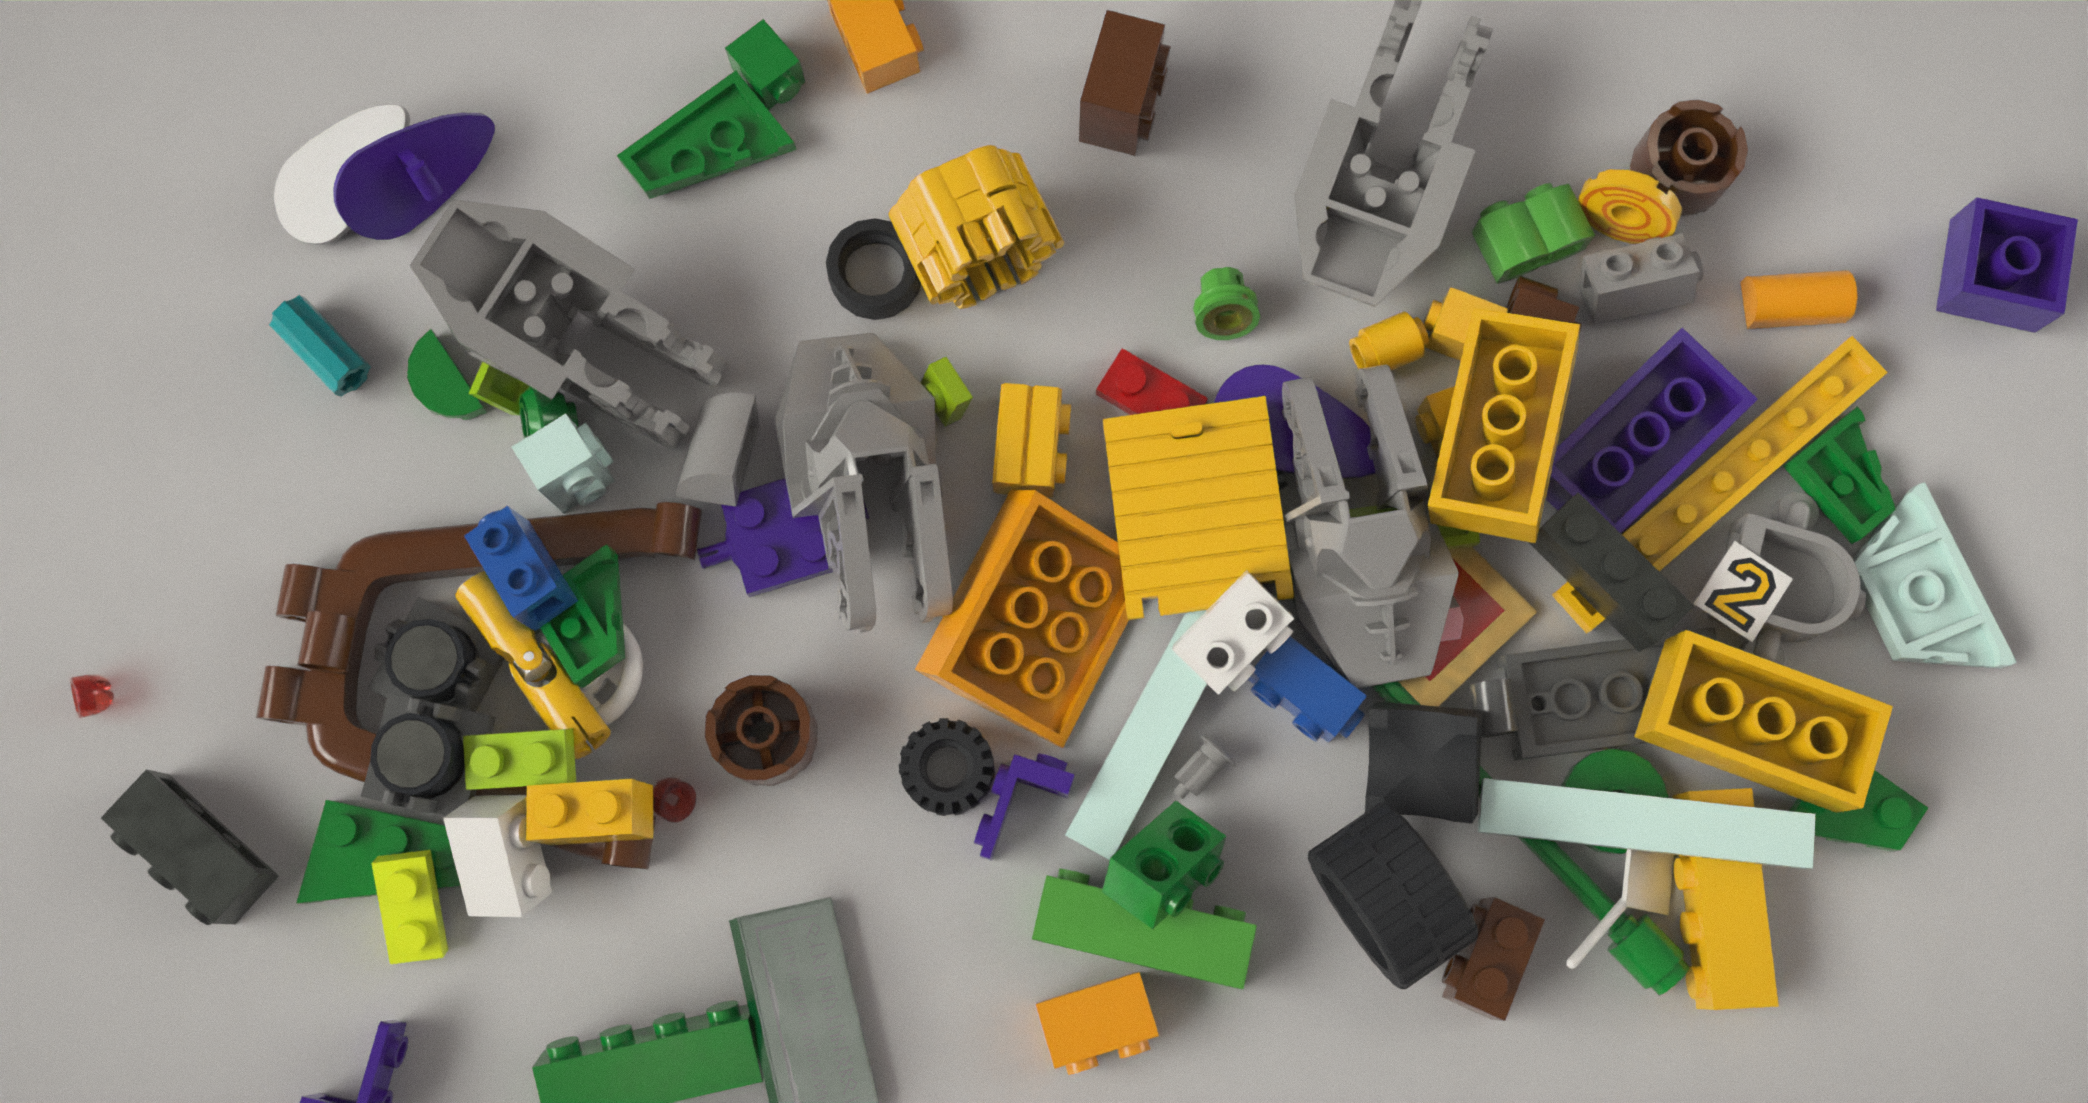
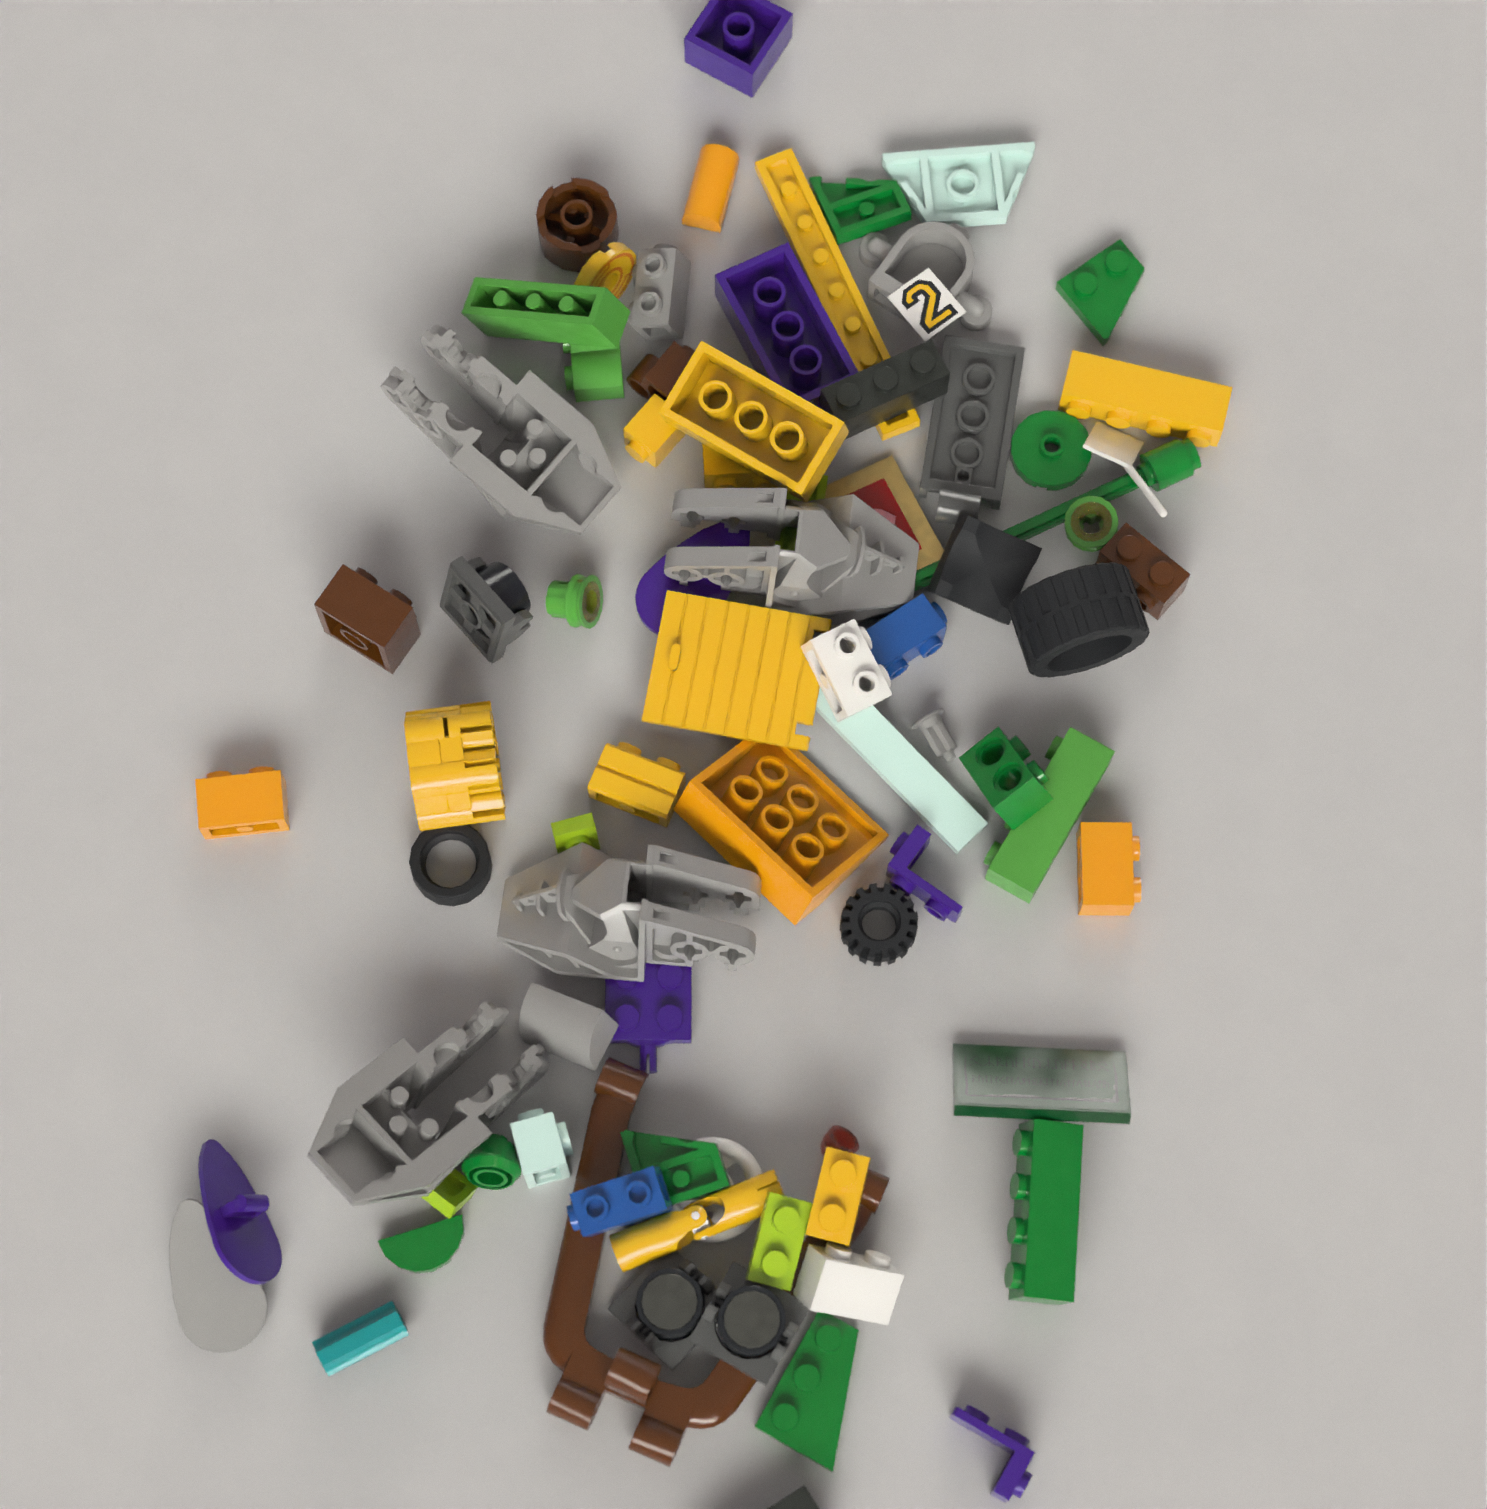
camera: 75 degrees left, 5 degrees down
(410, 906) = (864, 1375): neon yellow plate -> none
(706, 139) = (288, 967): green wing -> none
(738, 713) = (791, 1036): reddish brown brick -> none
(766, 65) = (243, 899): green brick -> none
(1143, 388) = (623, 684): red plate -> none
(1186, 206) = (493, 597): none -> dark grey piece
(1390, 342) = (649, 490): yellow brick -> none
(1550, 873) = (1090, 510): none -> piece
(1559, 151) = (546, 312): none -> bright green brick
(1647, 823) = (1076, 431): light aqua tile -> none
(1764, 722) = (1028, 324): yellow brick -> none

